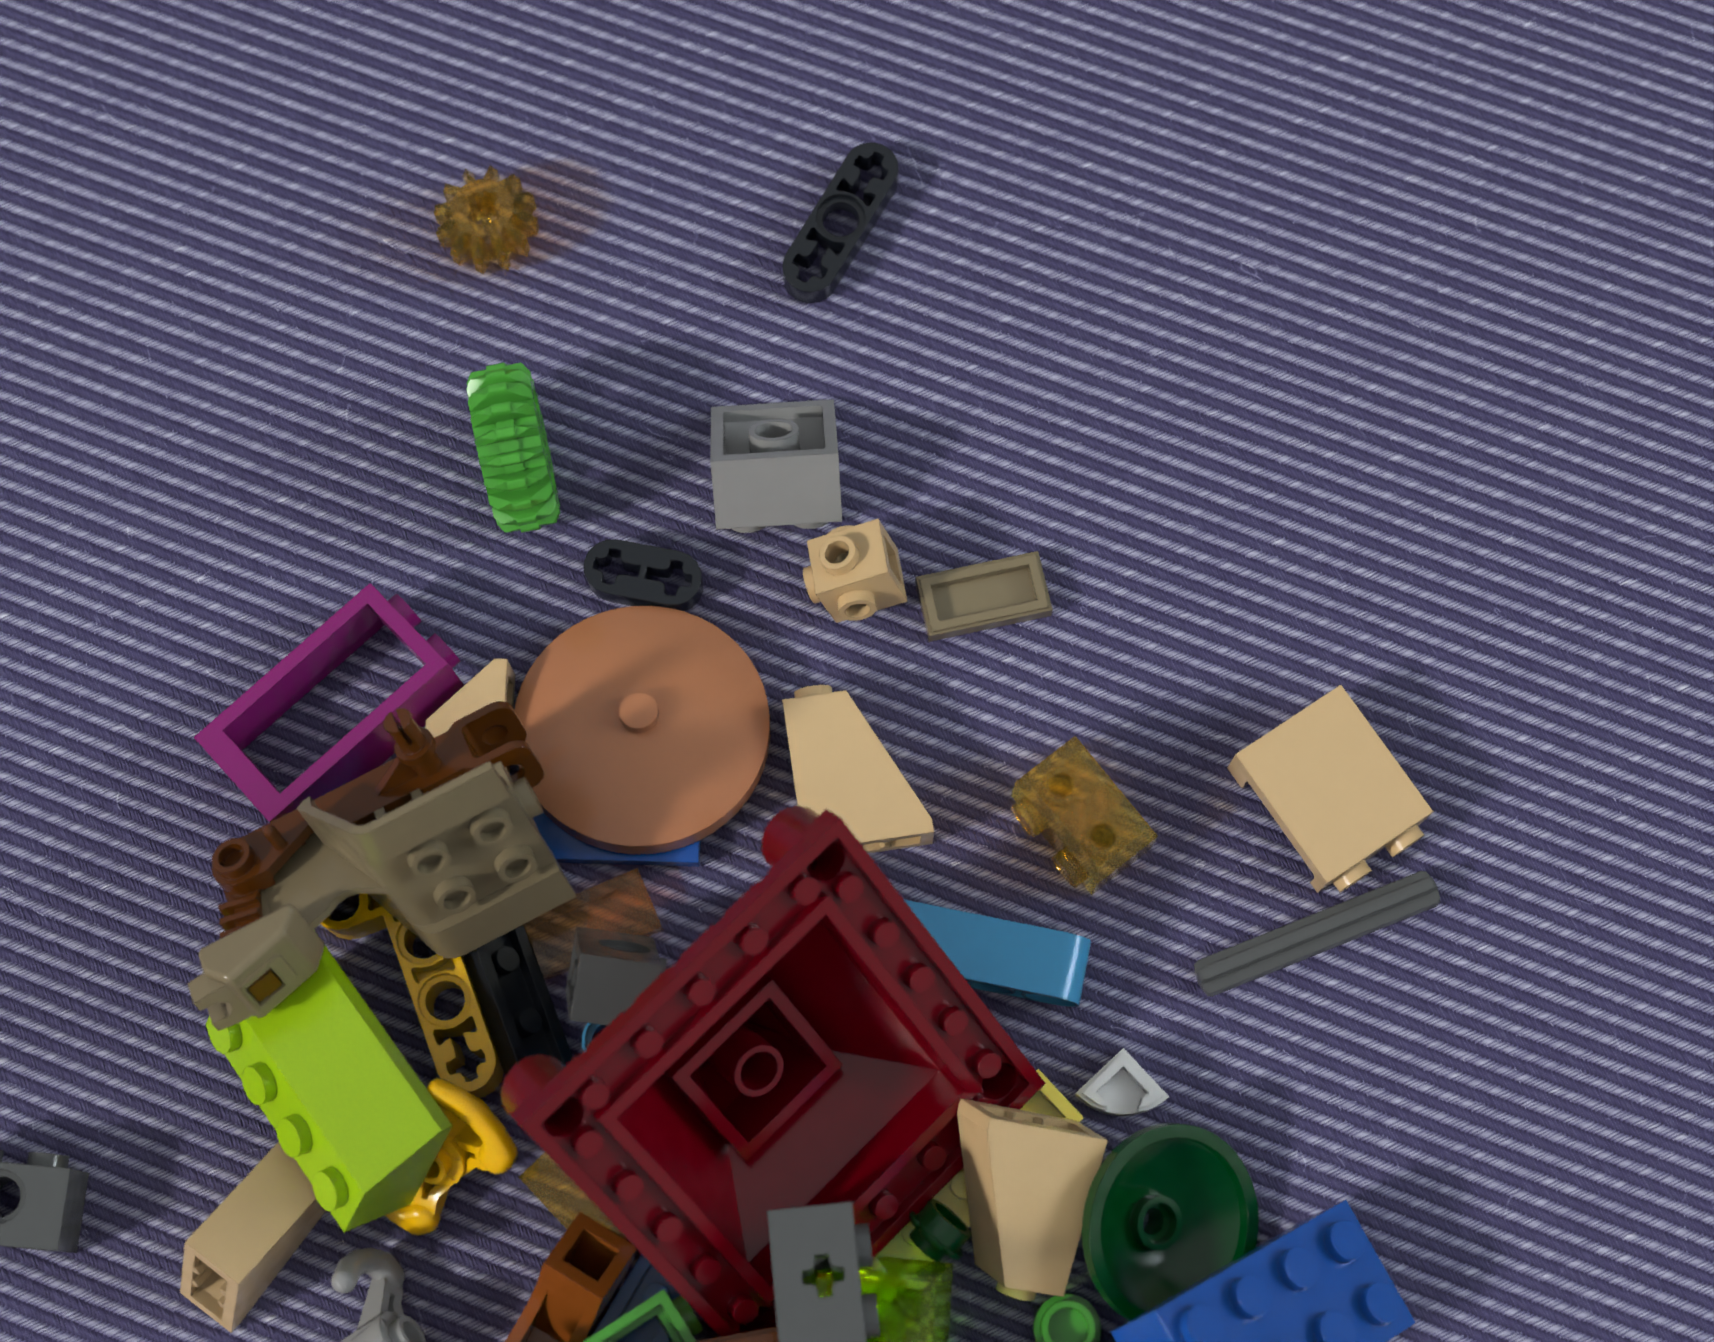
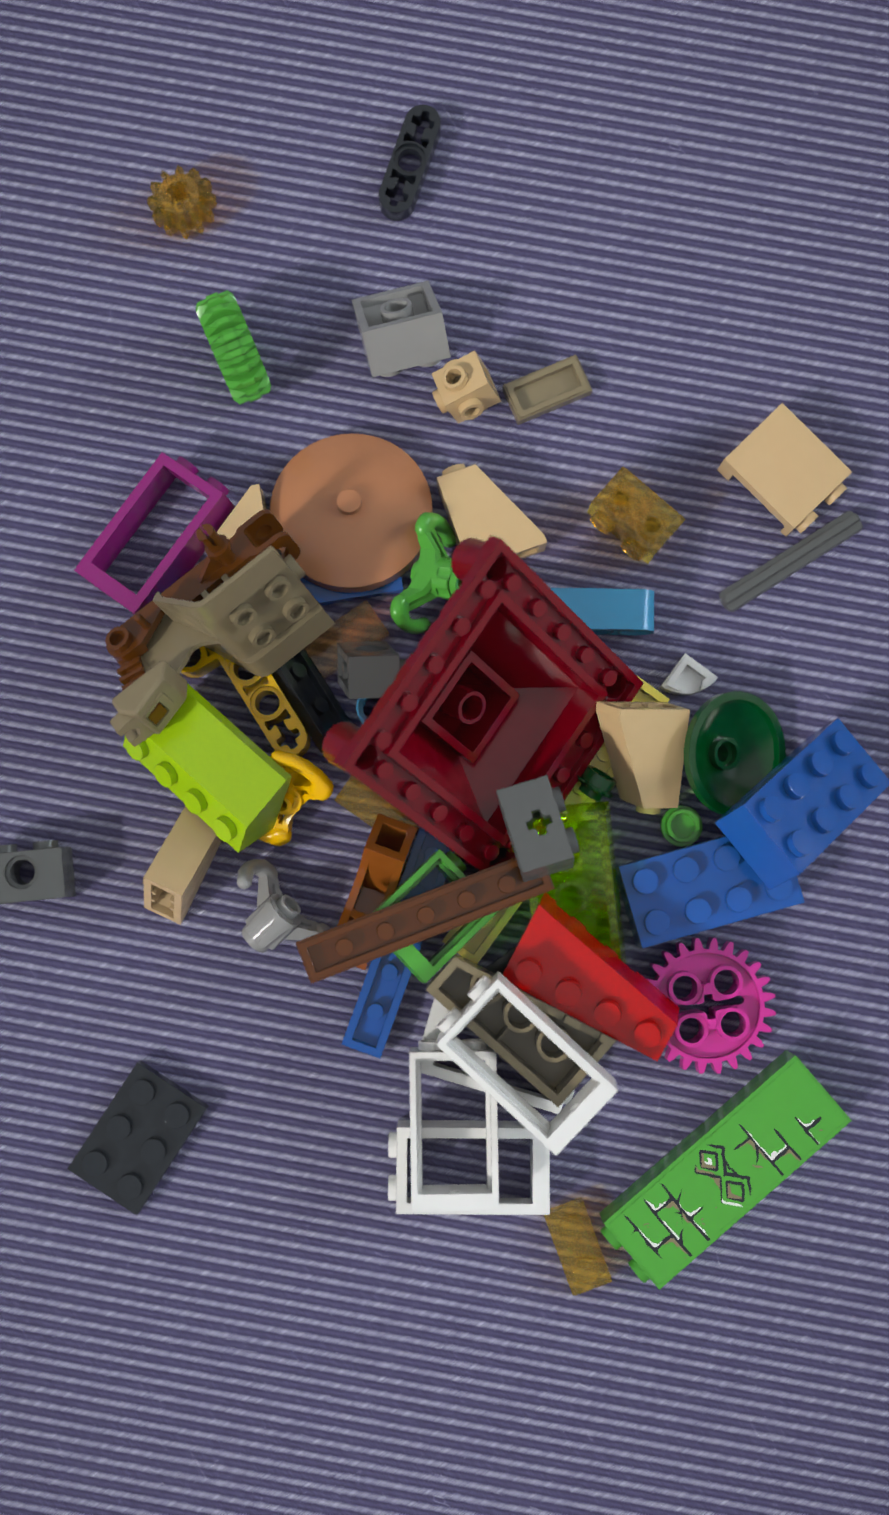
camera: 10 degrees left, 10 degrees up
(647, 562) = (331, 407): black beam -> none
(736, 844) = (429, 575): none -> bright green piece

